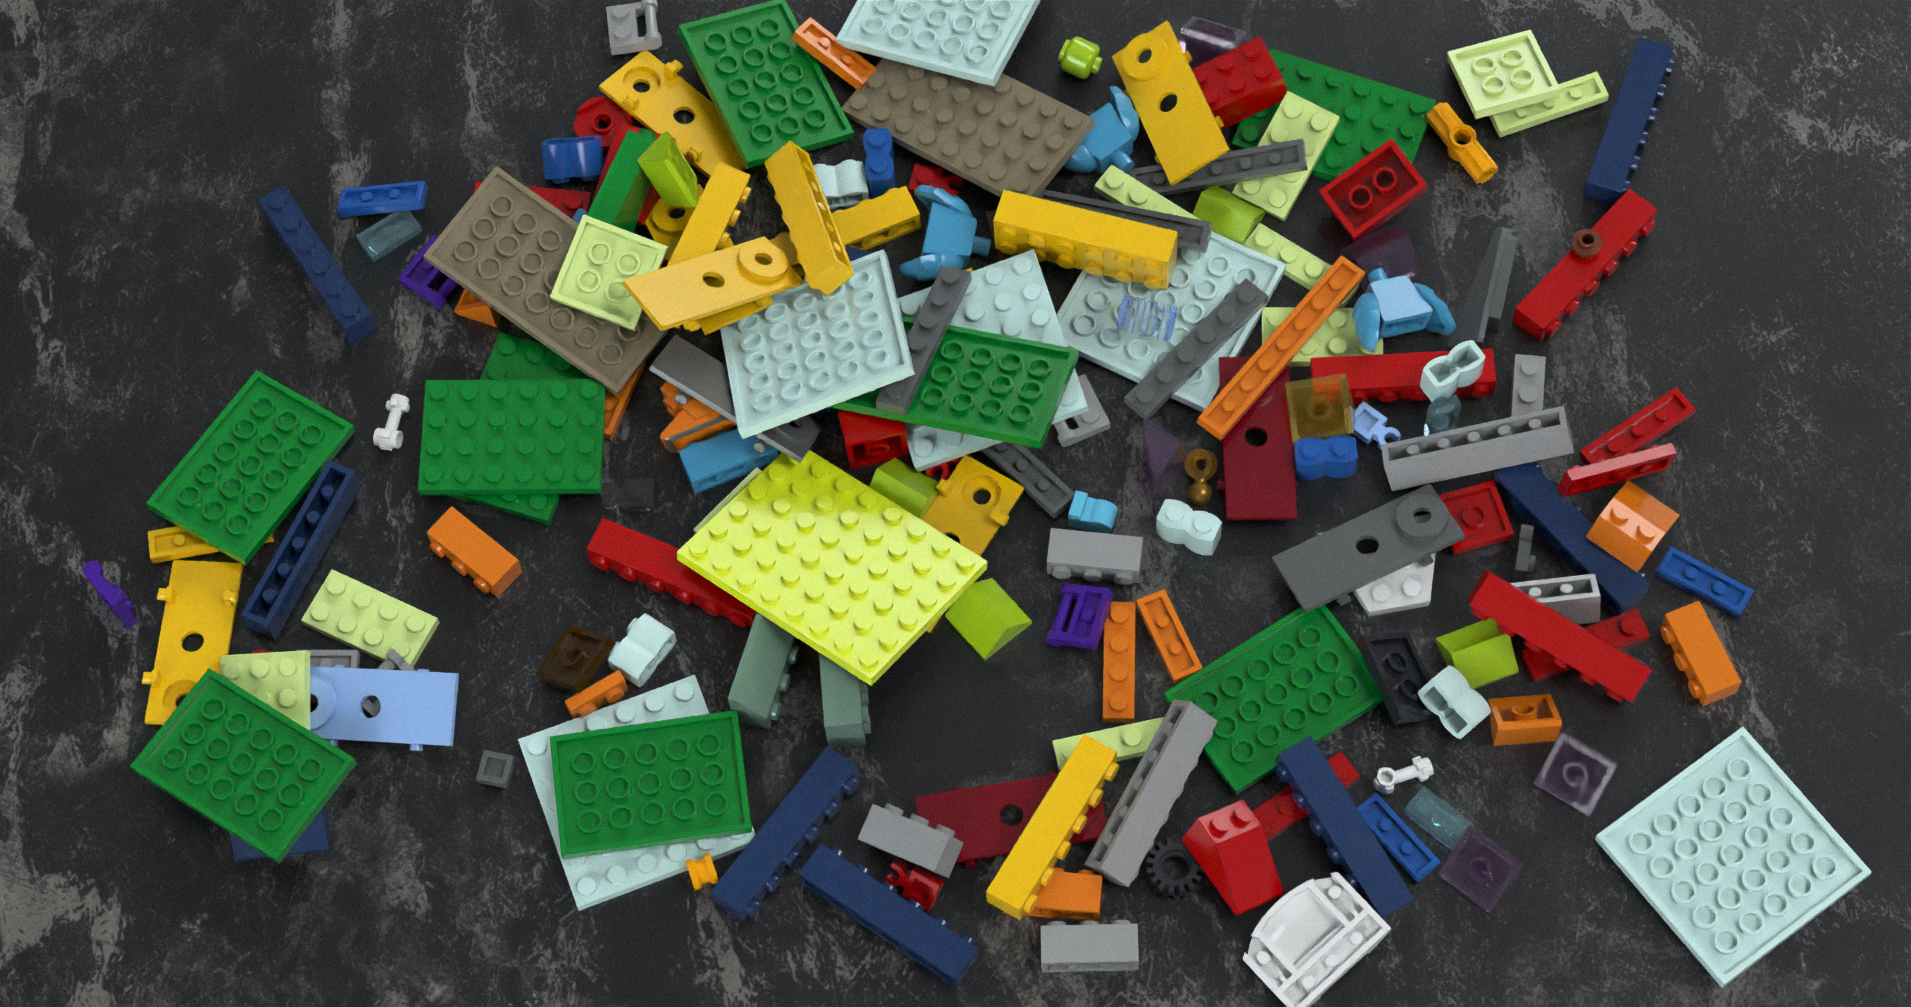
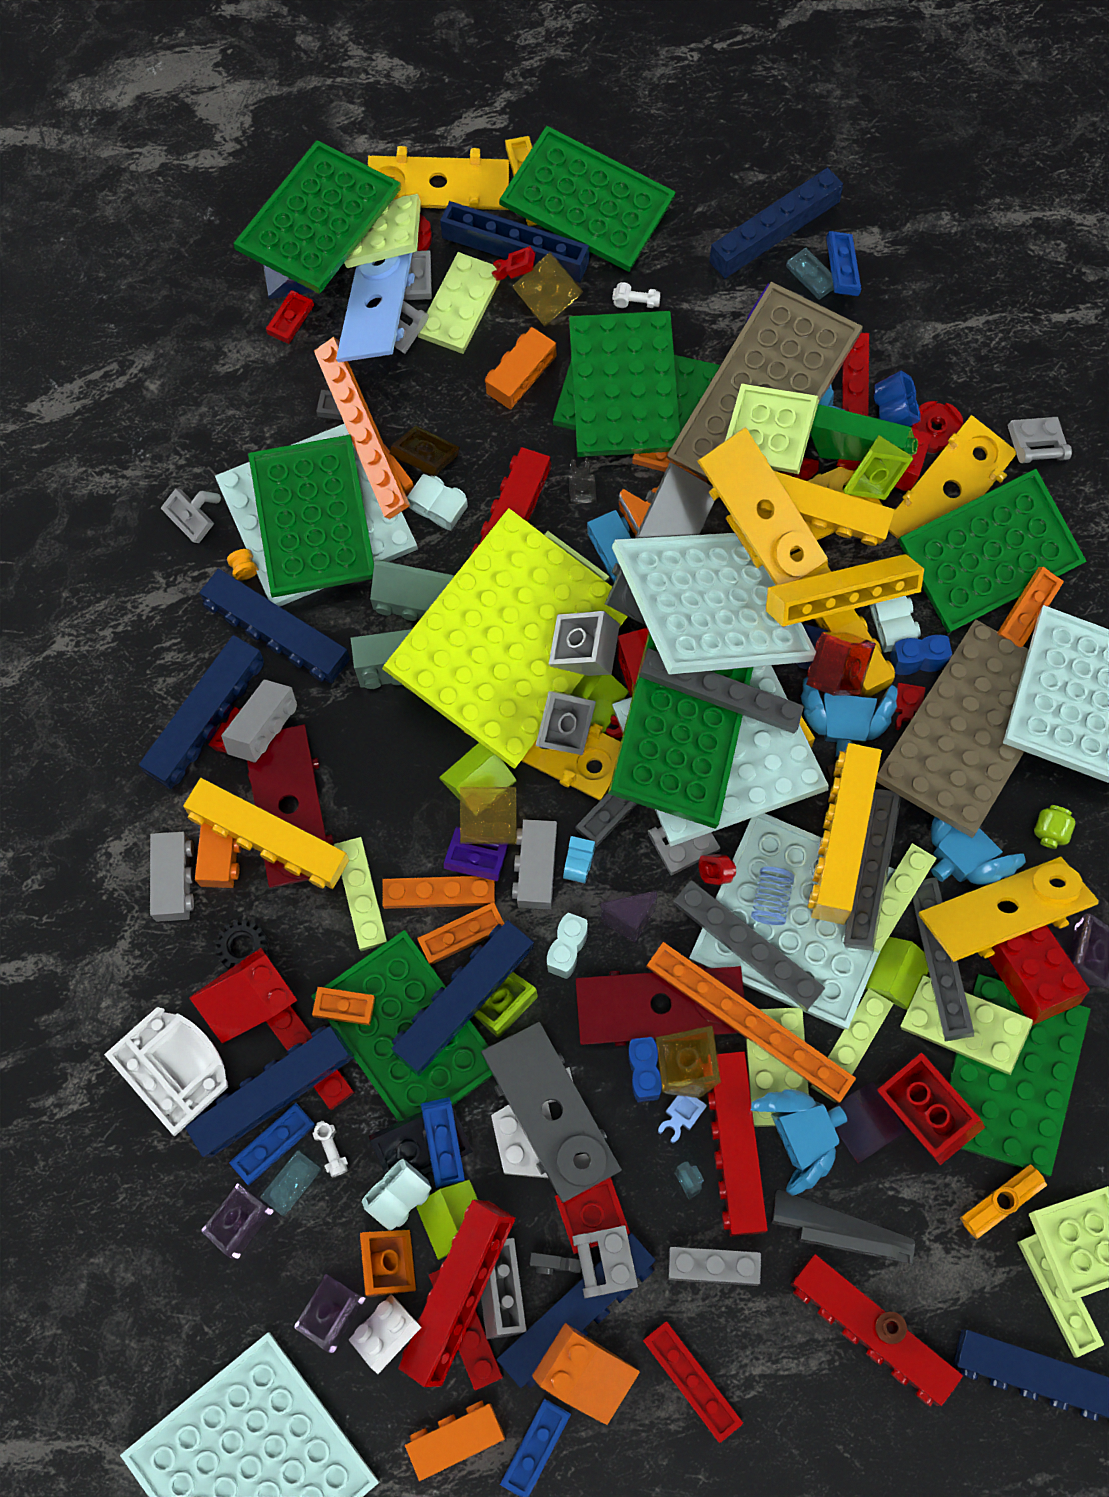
camera: 85 degrees right, 5 degrees up
(110, 594) = (461, 113): dark purple plate -> none
(340, 541) = (517, 264): none -> red plate
(365, 818) = (290, 317): none -> red plate
(375, 513) = (547, 289): none -> clear yellow plate
(539, 725) = (362, 430): none -> plate
(628, 935) = (187, 512): none -> light grey plate
(848, 483) = (584, 643): none -> light grey slope
(890, 225) = (840, 663): none -> clear red brick
(942, 505) = (565, 722): none -> light grey slope
(1040, 597) = (487, 815): none -> clear yellow plate
(1112, 373) = (716, 869): none -> red plate
(1151, 793) = (303, 919): light grey brick -> none
(1200, 492) = (630, 955): pearl gold plate -> none
(1246, 628) = (462, 997): none -> dark blue brick
(1247, 594) = (506, 1004): none -> lime slope
(1251, 751) = (343, 1006): none -> orange plate
(1401, 652) = (442, 1142): none -> blue tile
(1455, 370) = (724, 1179): light aqua brick -> none
(1477, 448) = (652, 1215): light grey brick -> none
(1524, 487) = (615, 1260): none -> light grey plate
(1597, 713) = (384, 1333): none -> white plate
(1616, 470) = (649, 1368): red plate -> none

